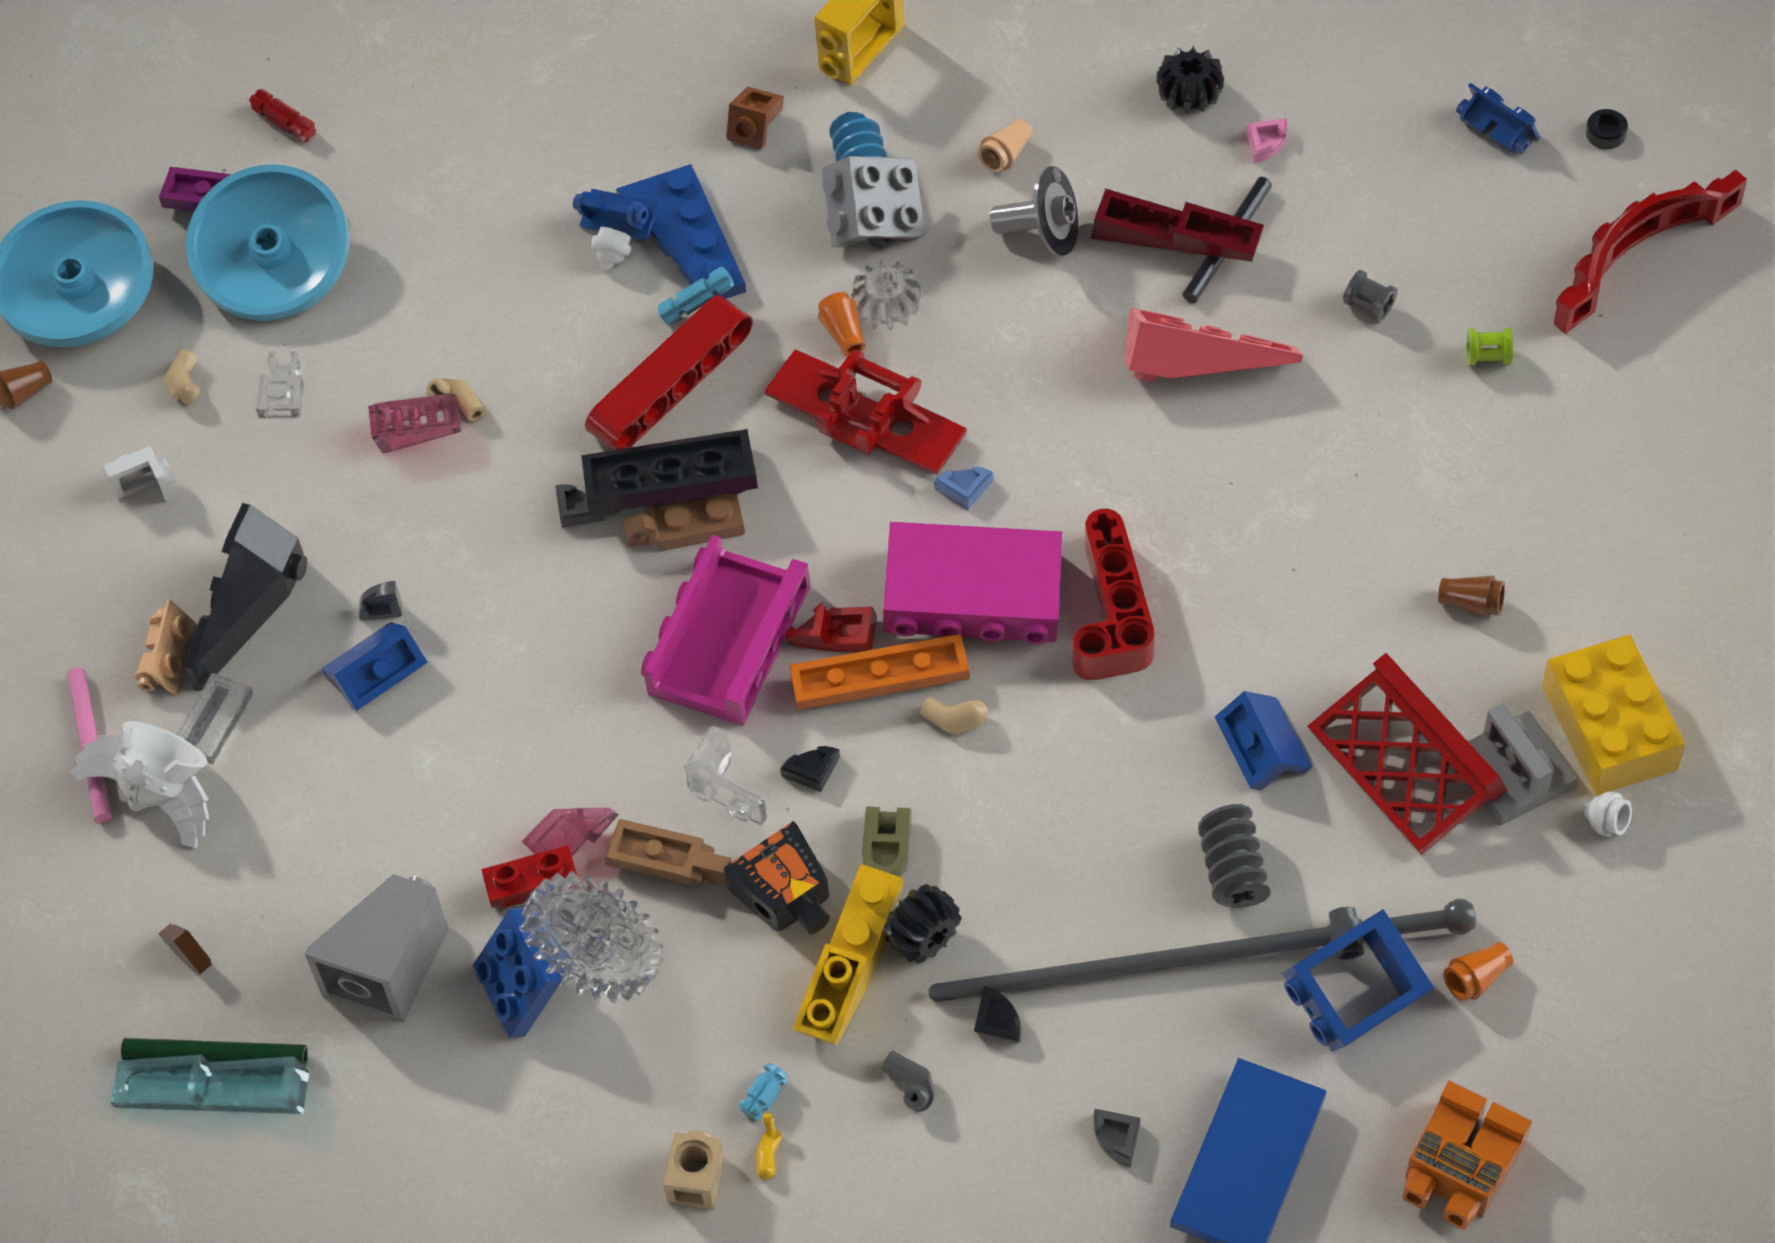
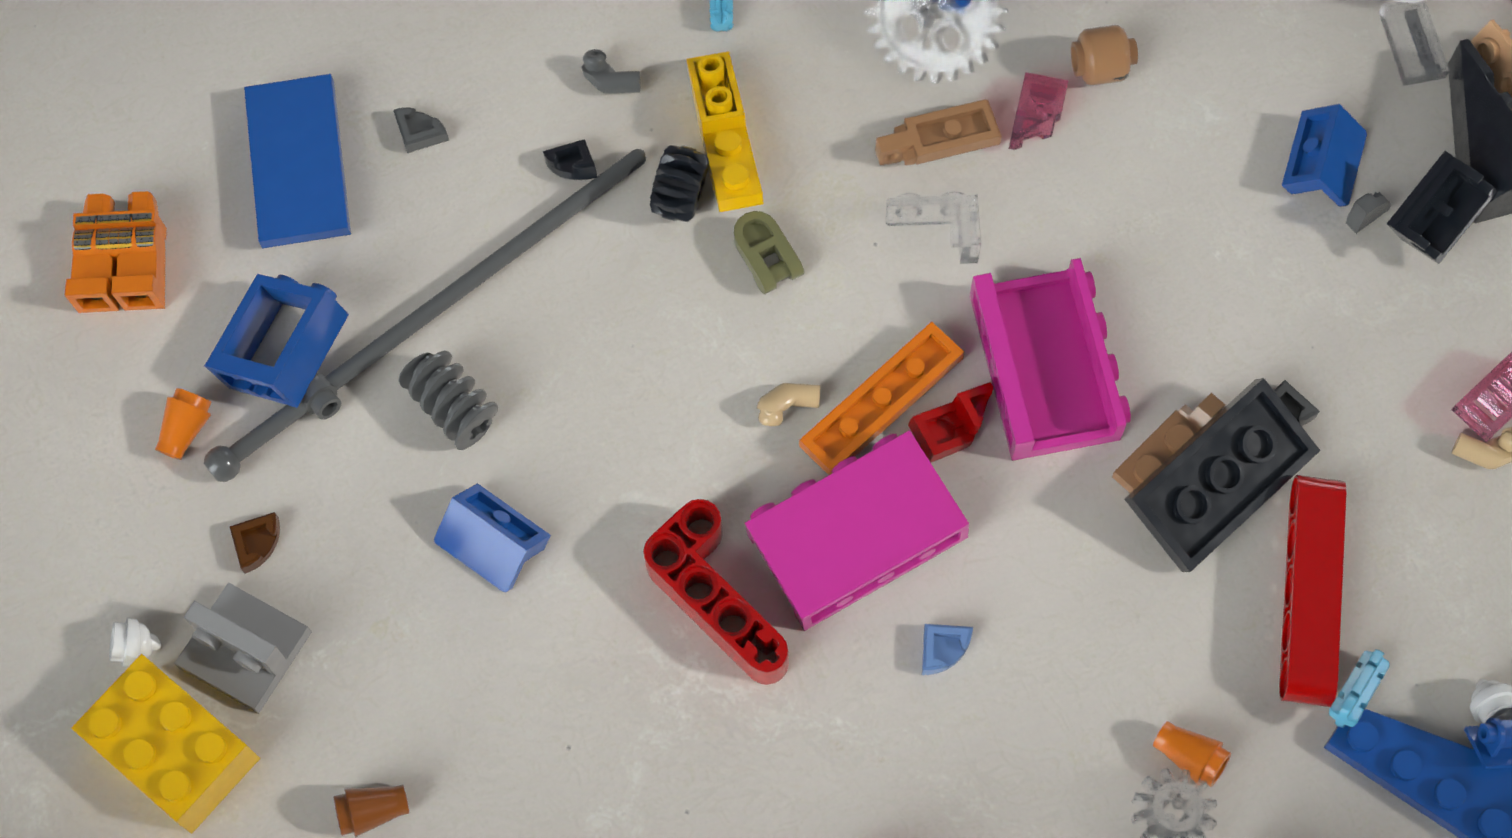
camera: 145 degrees right, 10 degrees up
(334, 556) = (1441, 207): none -> black hinge
(478, 836) = (1103, 55): none -> medium nougat head
(515, 880) = (1032, 48): red hinge -> none
(781, 881) = (825, 163): torso -> none
(811, 767) = (880, 286): black tile -> none
(863, 421) = (1096, 655): red piece -> none
(1441, 738) = (319, 616): red fence -> none
(1462, 847) = (255, 540): none -> reddish brown tile

